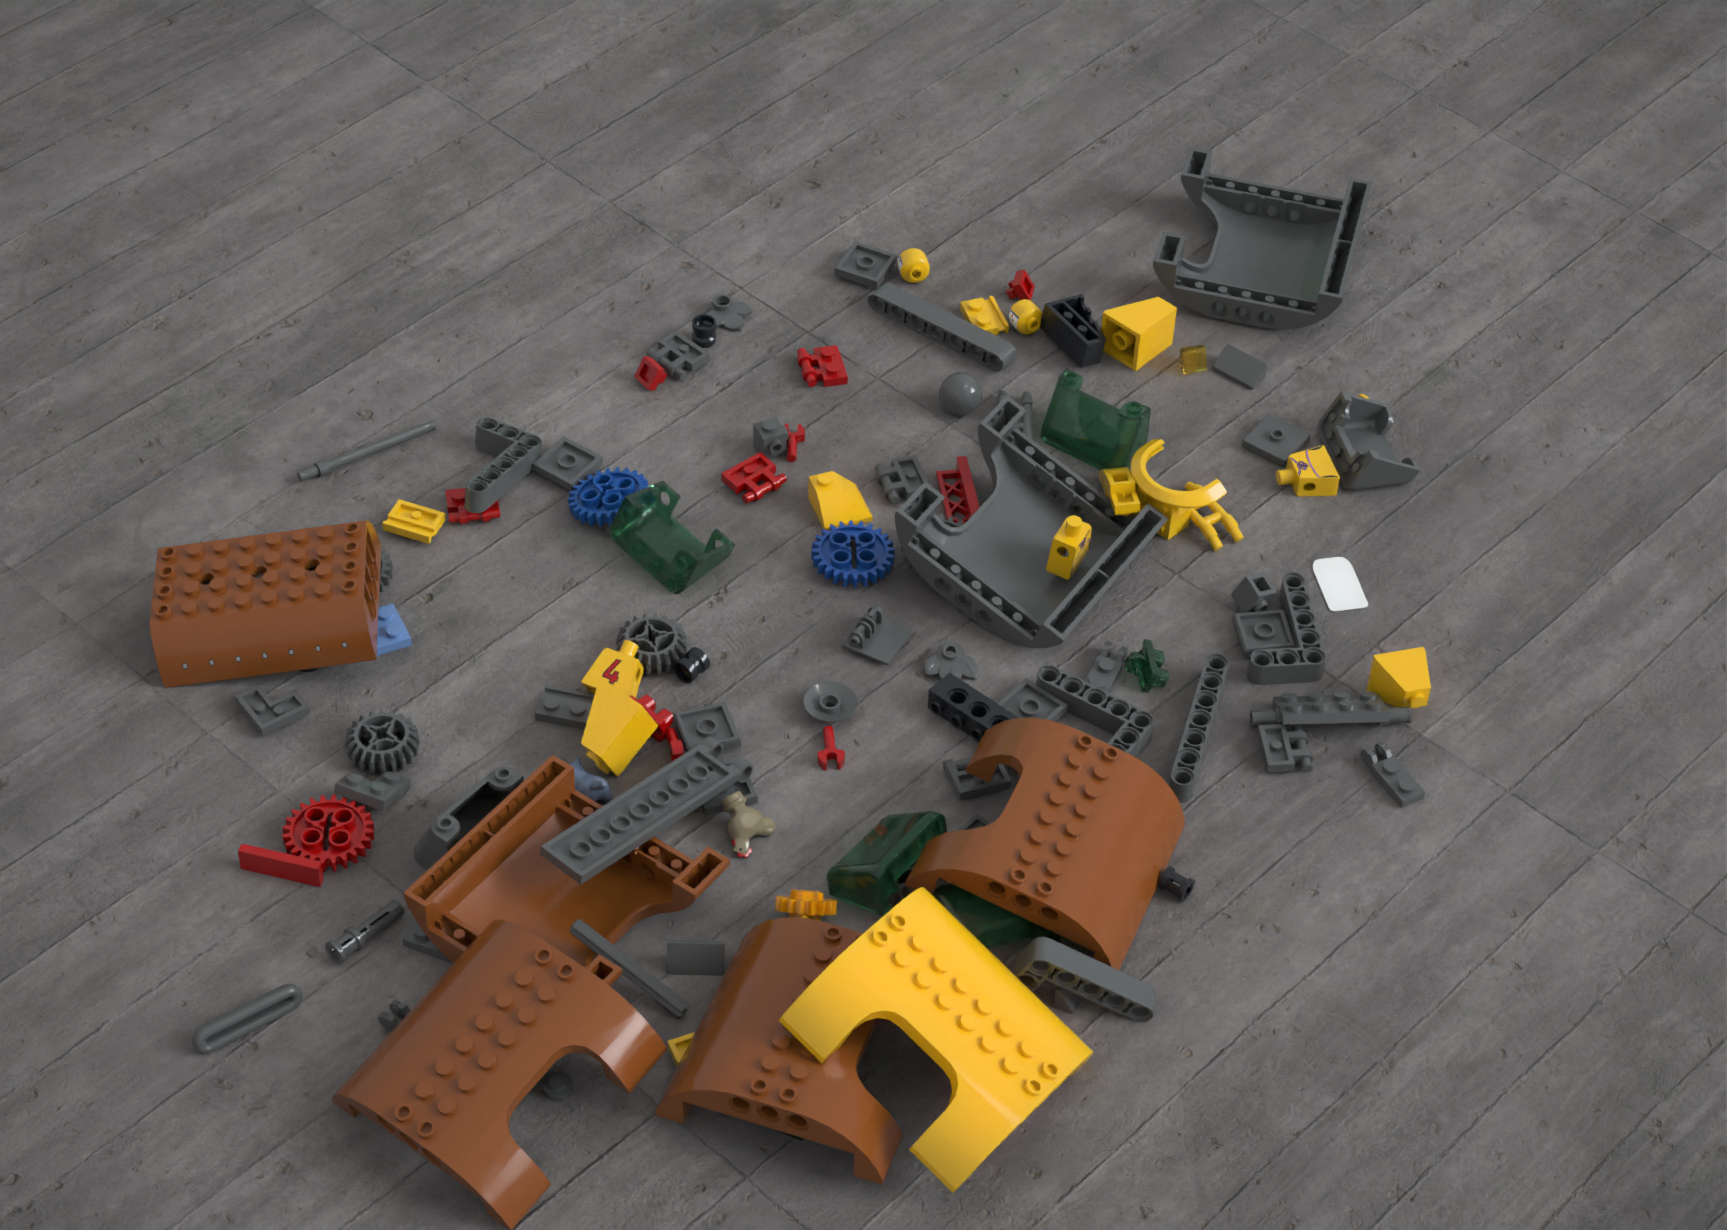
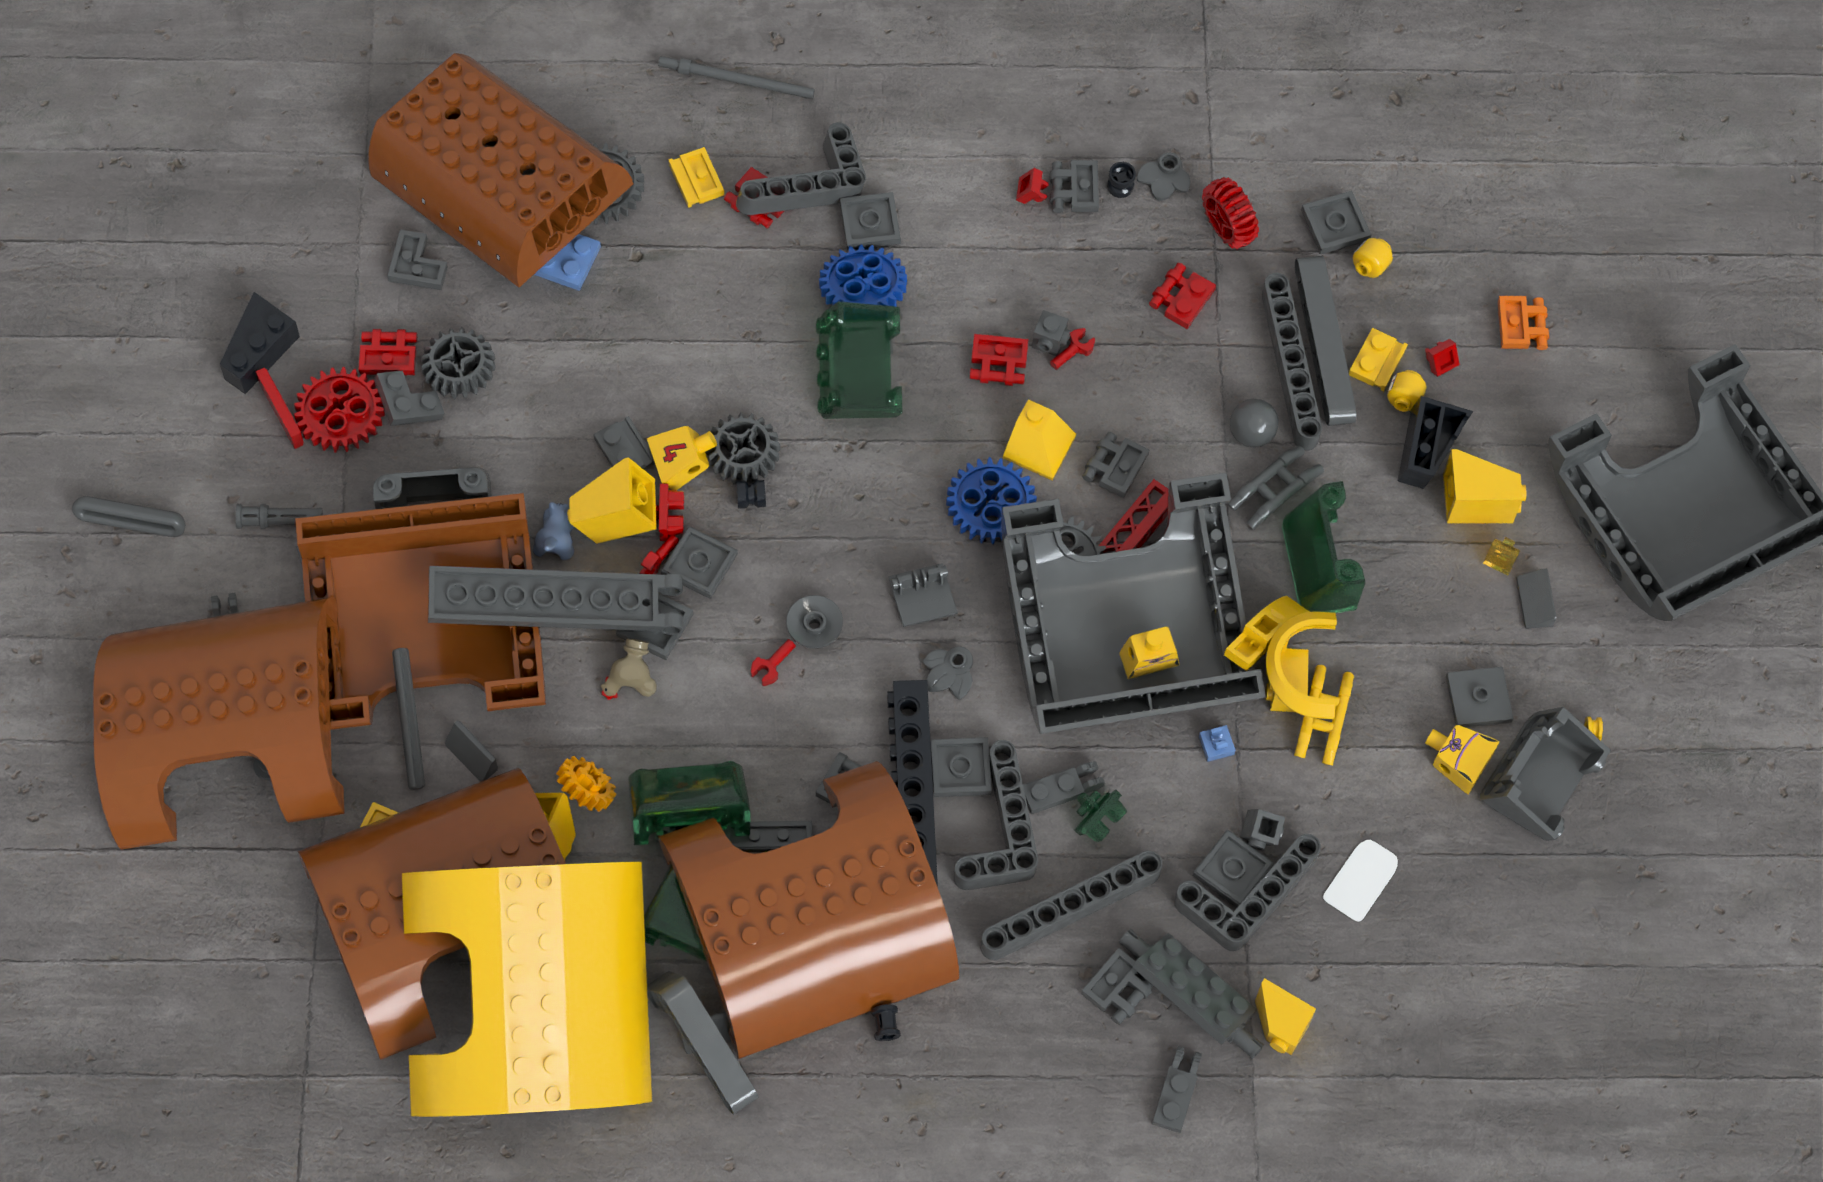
camera: 45 degrees right, 20 degrees up
(211, 836) = (257, 343): none -> black wedge
(322, 779) = (387, 358): none -> red plate
(802, 291) = (1230, 212): none -> red gear
(935, 349) = (1291, 372): none -> dark grey beam
(1042, 240) = (1515, 326): none -> orange plate
(1162, 578) = (1217, 743): none -> medium blue tile

